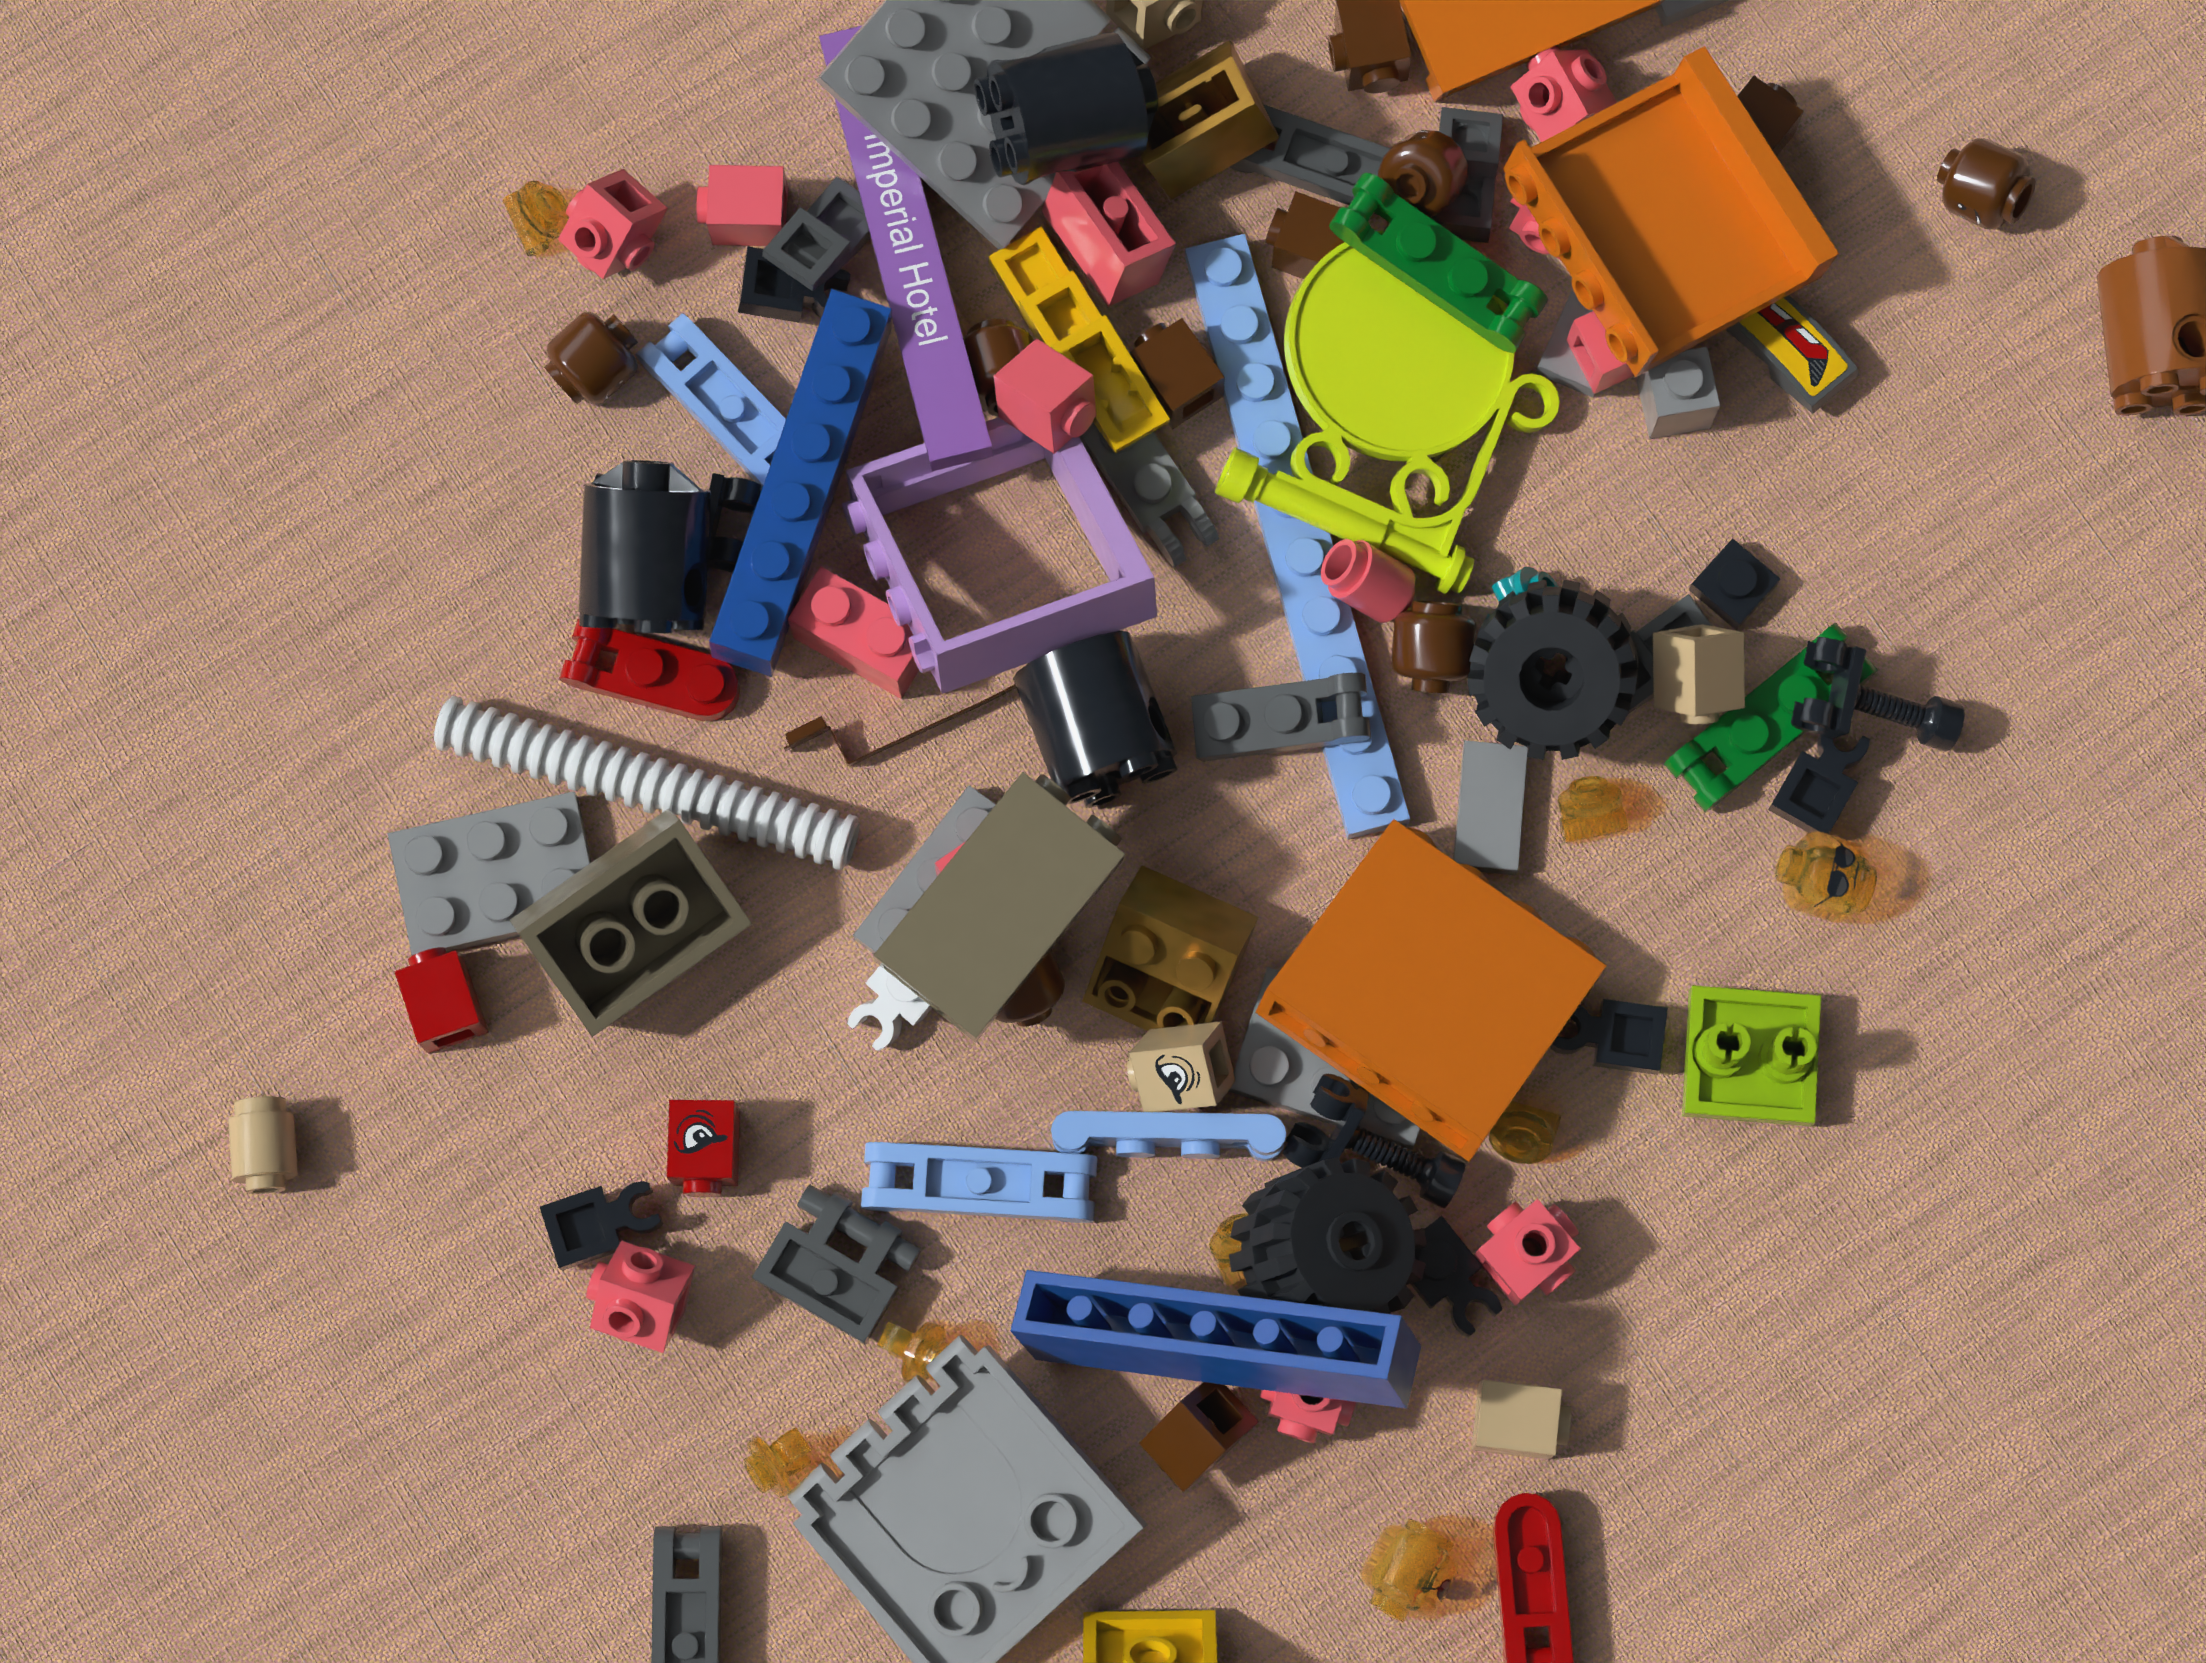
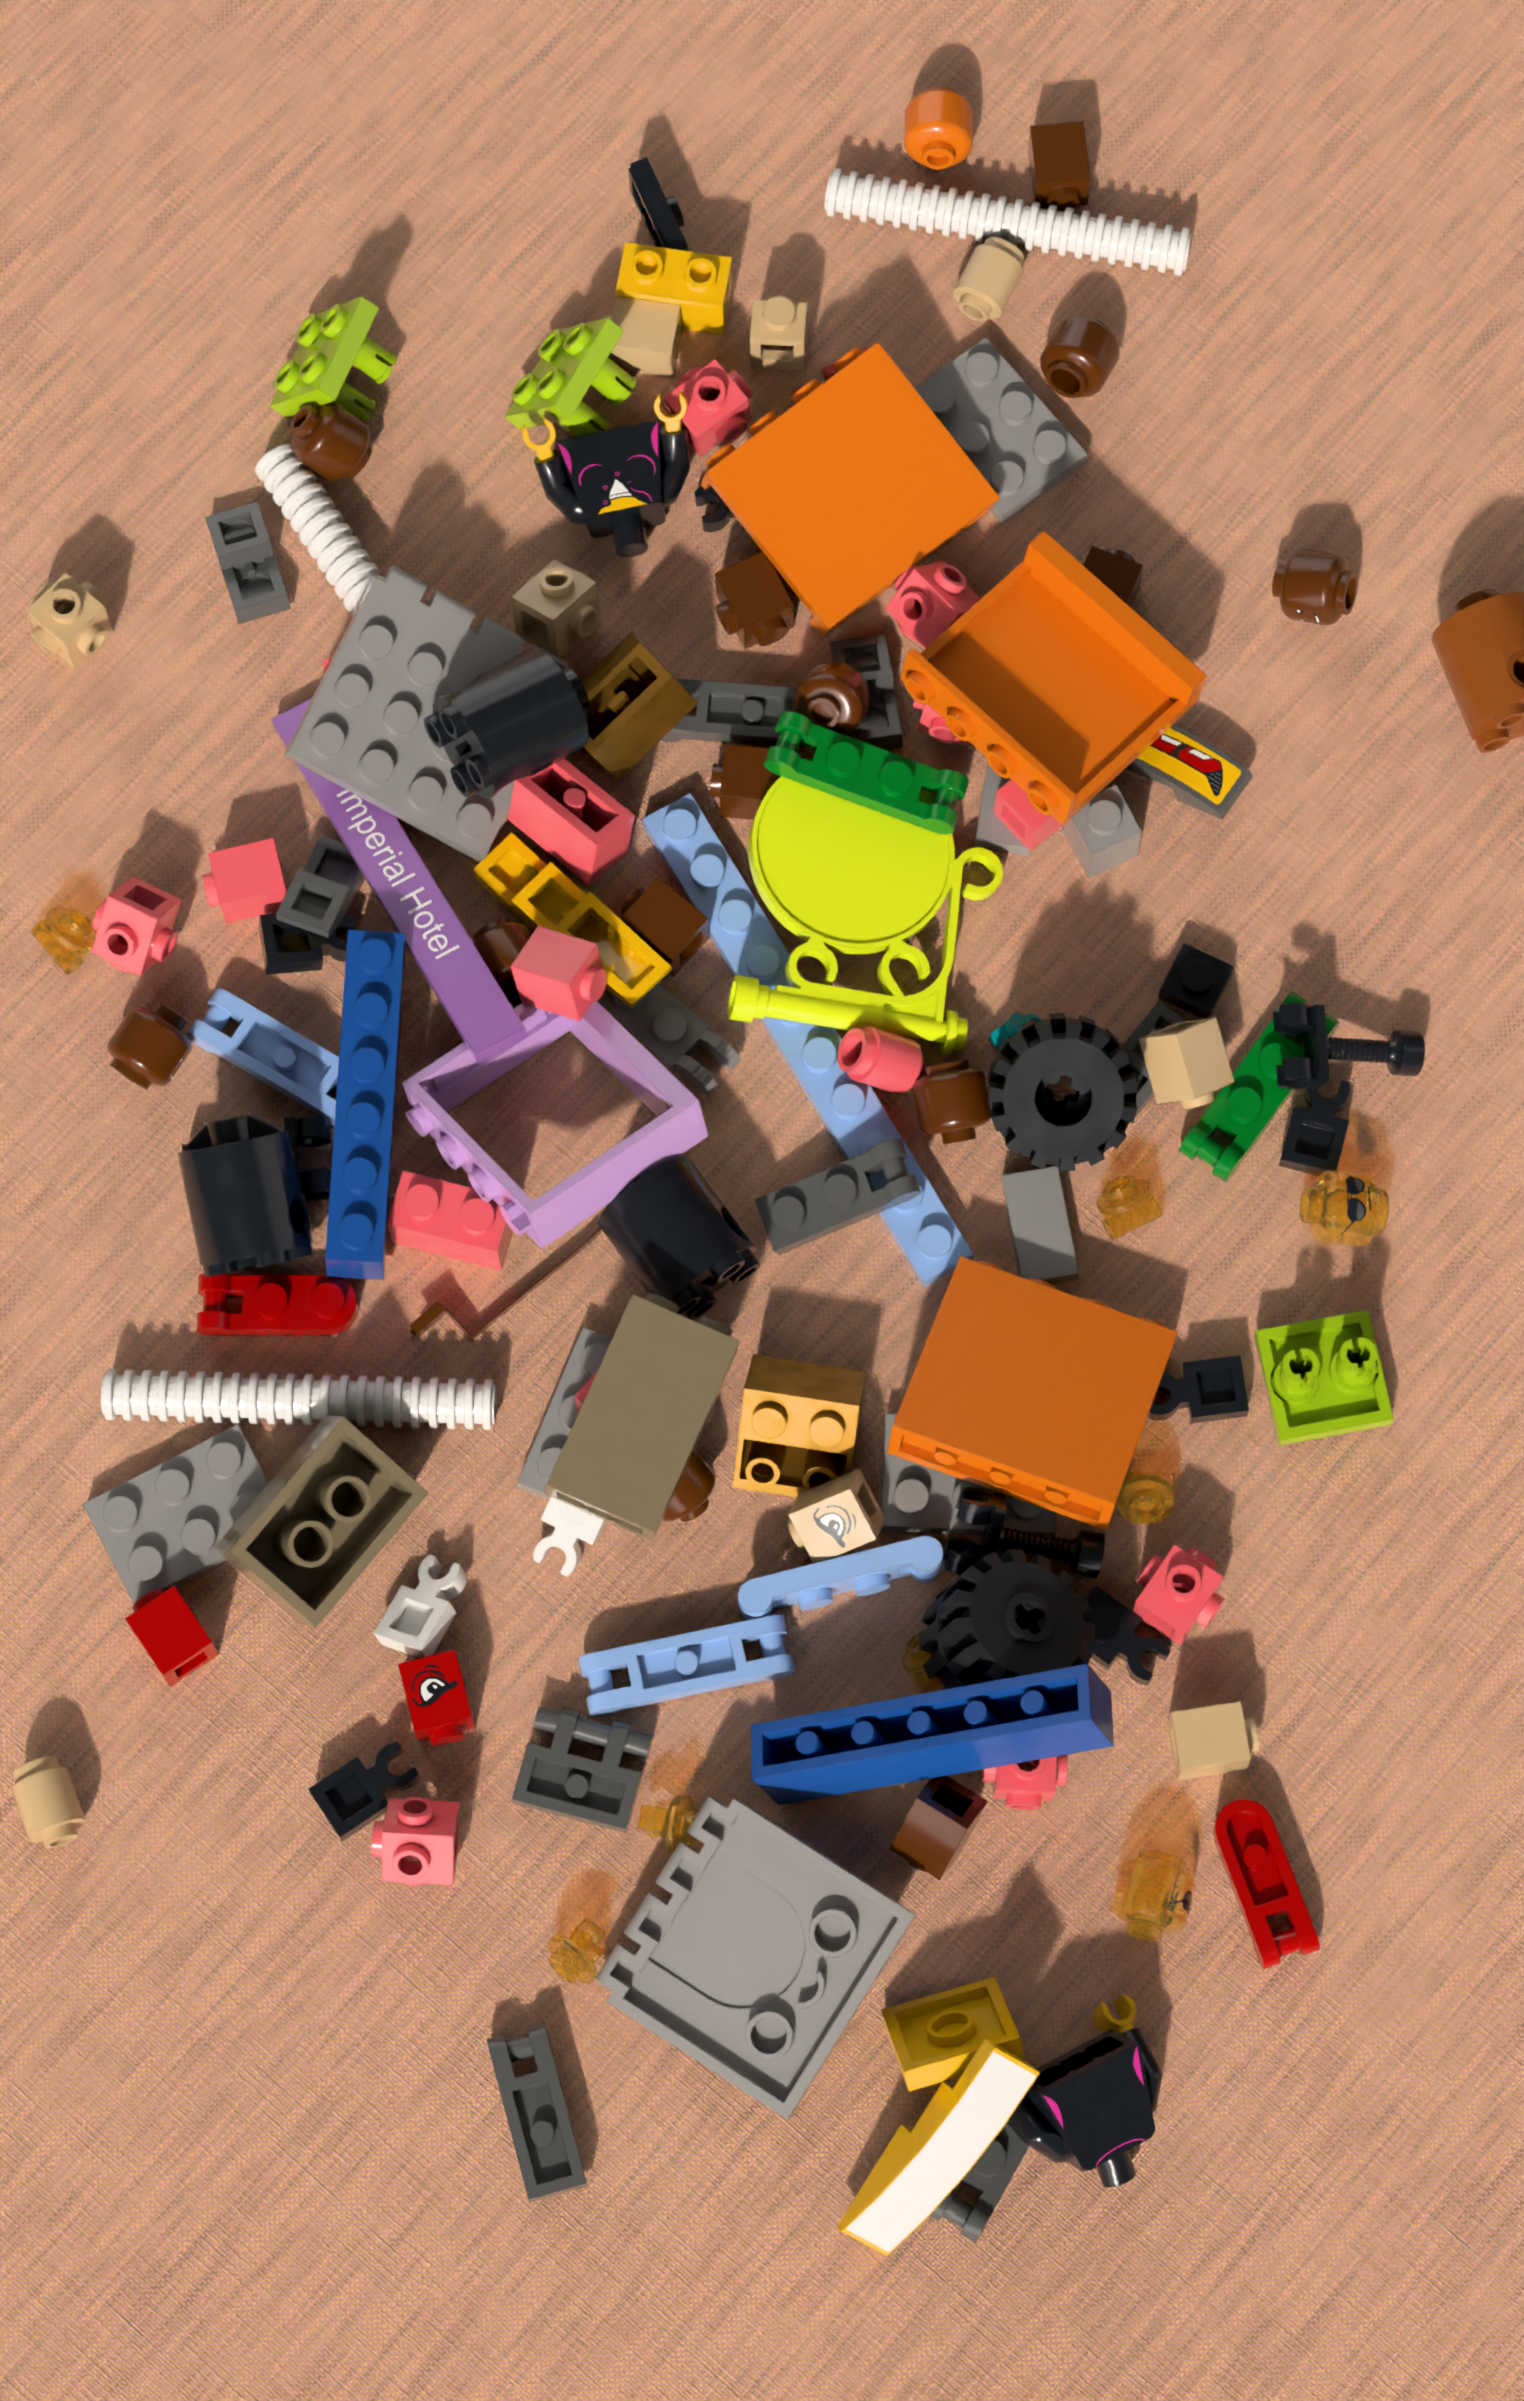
camera: 15 degrees left, 5 degrees down
(711, 1052) = (422, 1615): none -> white plate

